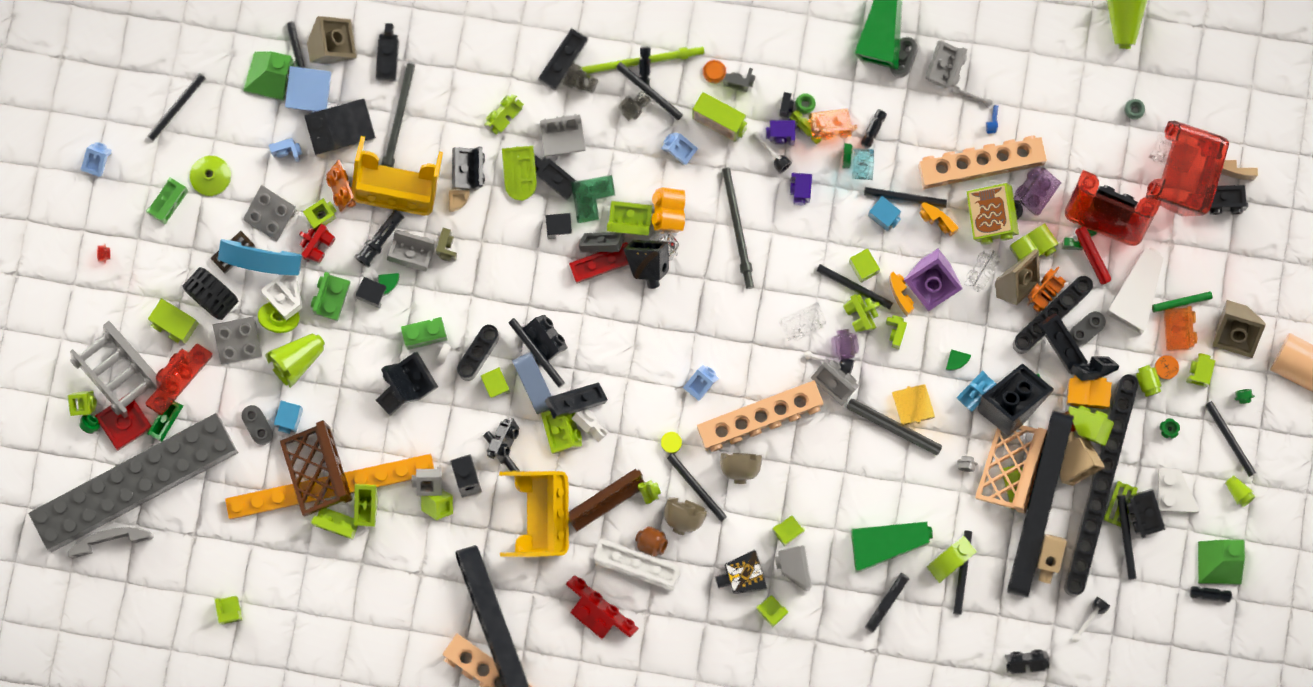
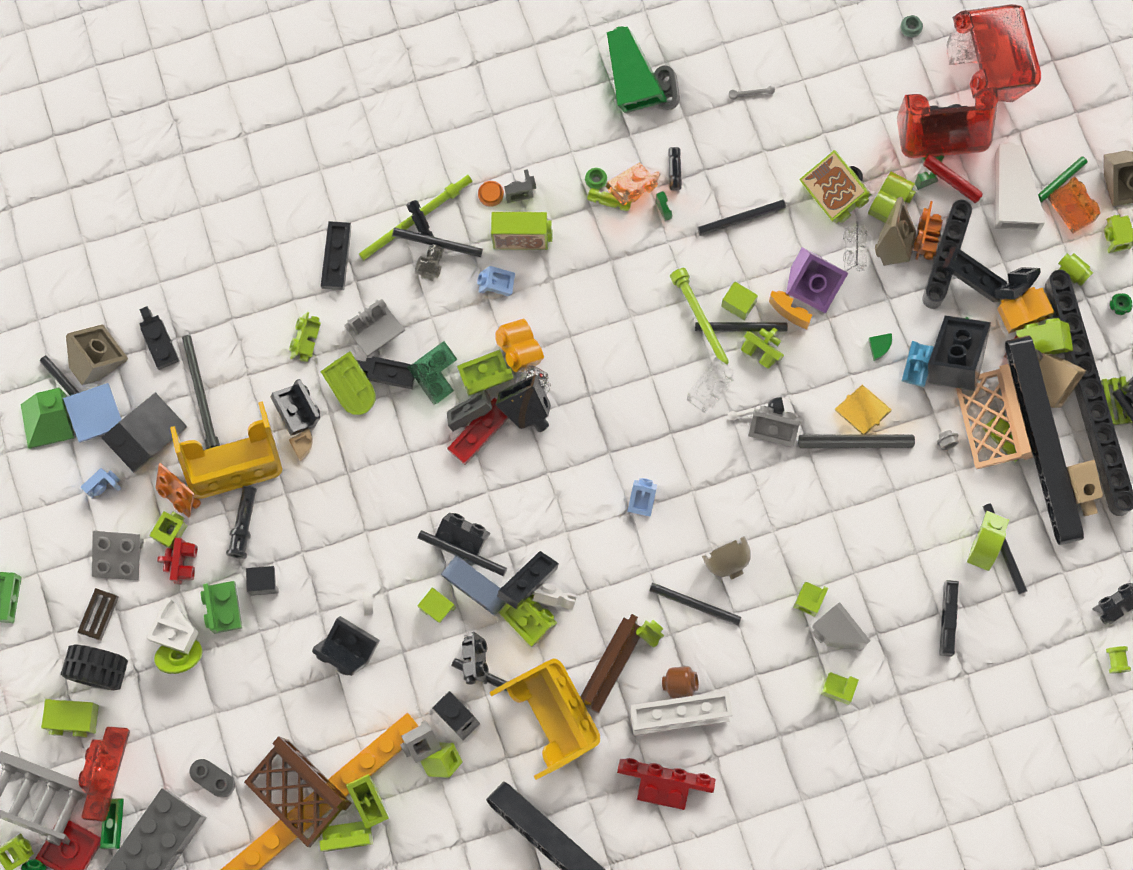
camera: 25 degrees left, 5 degrees down
(210, 185) = (45, 555): lime dish -> none
(237, 340) = (147, 701): light grey hinge -> none
(259, 260) = (129, 606): dark azure slope -> none
(288, 417) = (240, 753): dark azure brick -> none
(295, 358) = (217, 688): lime cone -> none
(388, 401) = (336, 681): black plate -> none
(389, 281) = (274, 559): green tile -> none
(411, 250) = (280, 517): light grey bracket -> none
(424, 333) = (337, 593): bright green brick -> none
(446, 241) = (311, 490): olive bracket -> none
(479, 342) = (399, 573): black beam -> none
(558, 225) = (416, 416): black panel -> none
(576, 78) = (358, 265): clear smoke plate -> none
(671, 442) = (645, 572): neon yellow tile -> none
(684, 516) = (699, 639): dark tan cylinder -> none
(743, 574) = (791, 666): torso -> none
(745, 266) = (623, 361): pearl dark grey bar -> none
(781, 131) = (588, 215): dark purple brick -> none
(781, 162) = (603, 245): hinge -> none
(786, 105) = (578, 187): black plate -> none
(801, 188) = (636, 258): dark purple brick -> none
(807, 391) = (753, 451): light nougat brick -> none
(827, 223) = (681, 278): none -> lime piece
(844, 344) = (763, 386): clear purple head -> none
(863, 164) = (684, 205): clear light blue brick -> none
(882, 543) = (911, 561): green slope -> none
(885, 214) = (732, 242): dark azure brick -> none
(896, 335) = (809, 350): lime bracket -> none
(933, 214) = (777, 218): light orange slope -> none
(946, 64) = (711, 74): light grey bracket -> none
(991, 127) = (787, 108): blue hand -> none
(1032, 145) = (757, 185): light nougat brick -> none
(1037, 190) = (864, 145): clear purple bracket -> none
(1088, 328) = (987, 249): dark grey plate -> none
(1167, 367) = (1083, 247): orange piece -> none
(1229, 198) = (1052, 61): black bracket -> none
(1230, 169) = (1046, 33): tan slope -> none

